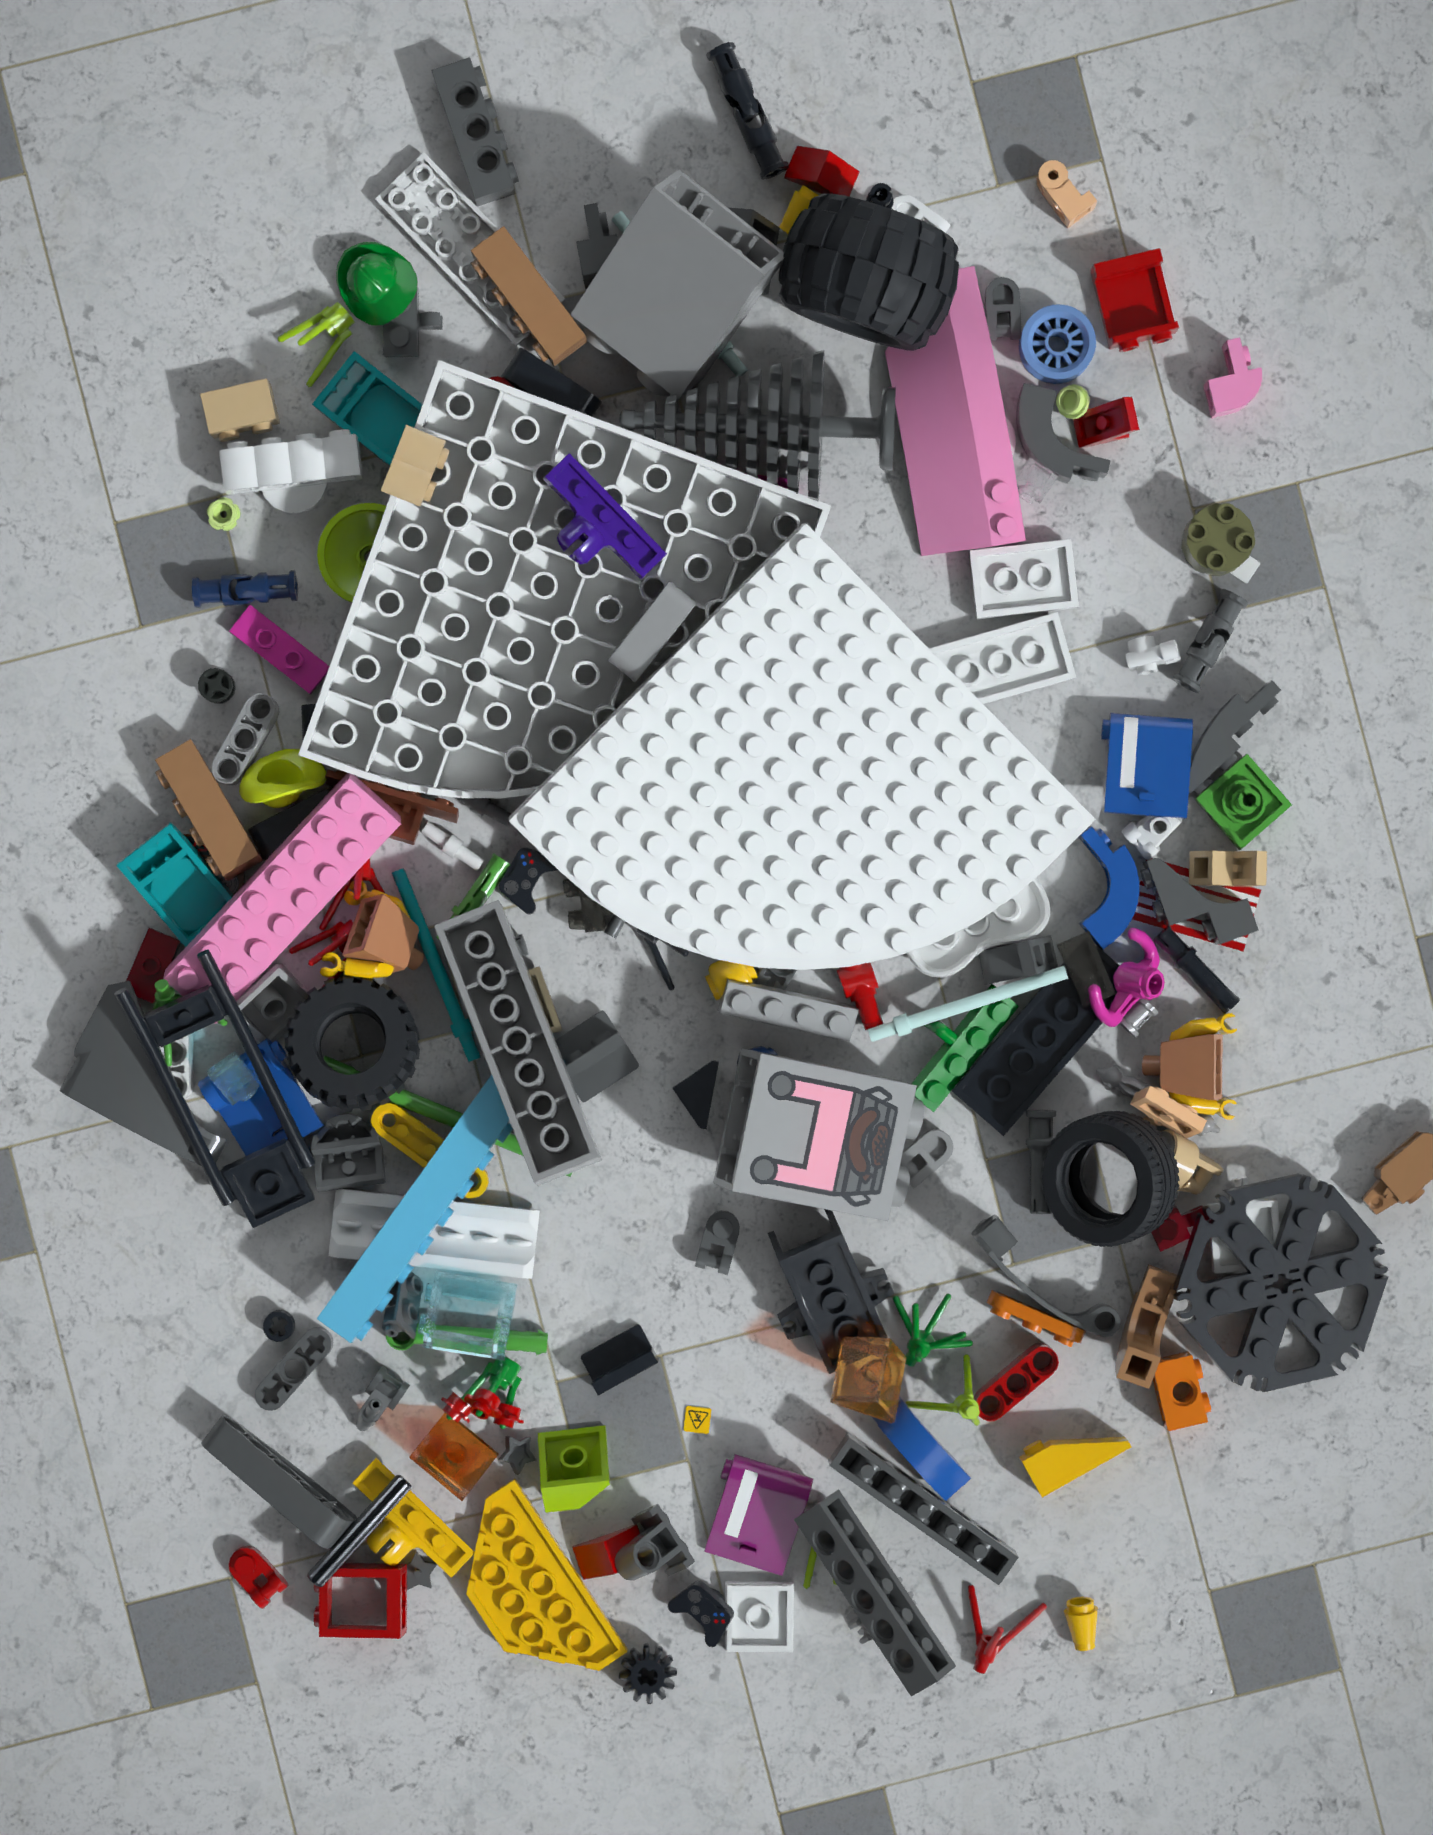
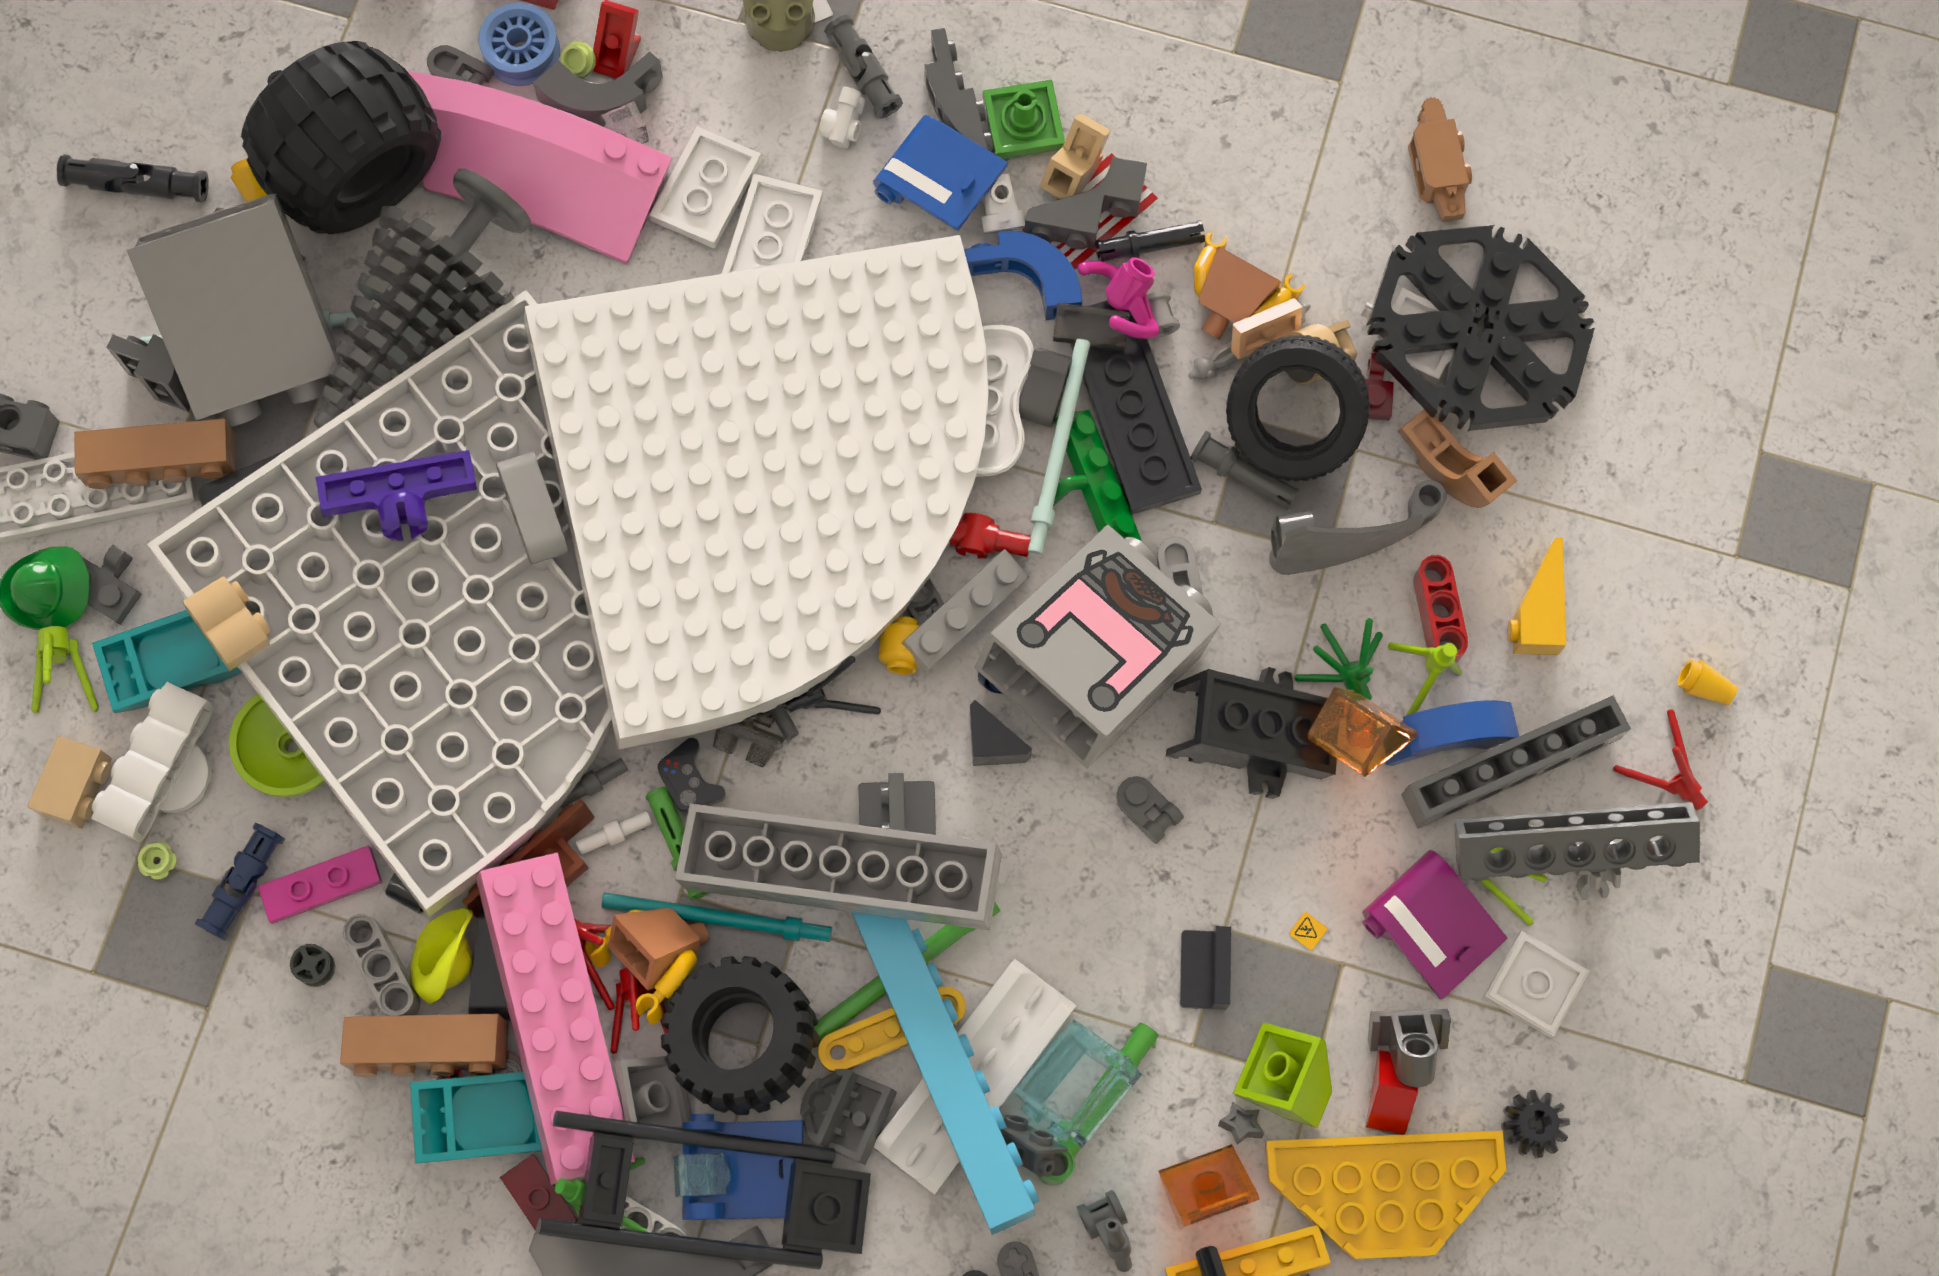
camera: 65 degrees left, 15 degrees down
(485, 1402) = (1173, 1114): plant -> none
(706, 1607) = (1500, 1027): black piece -> none
(821, 171) = (221, 151): red slope -> none
(1034, 1318) = (1390, 559): orange plate -> none
(1185, 1411) = (1553, 464): orange brick -> none

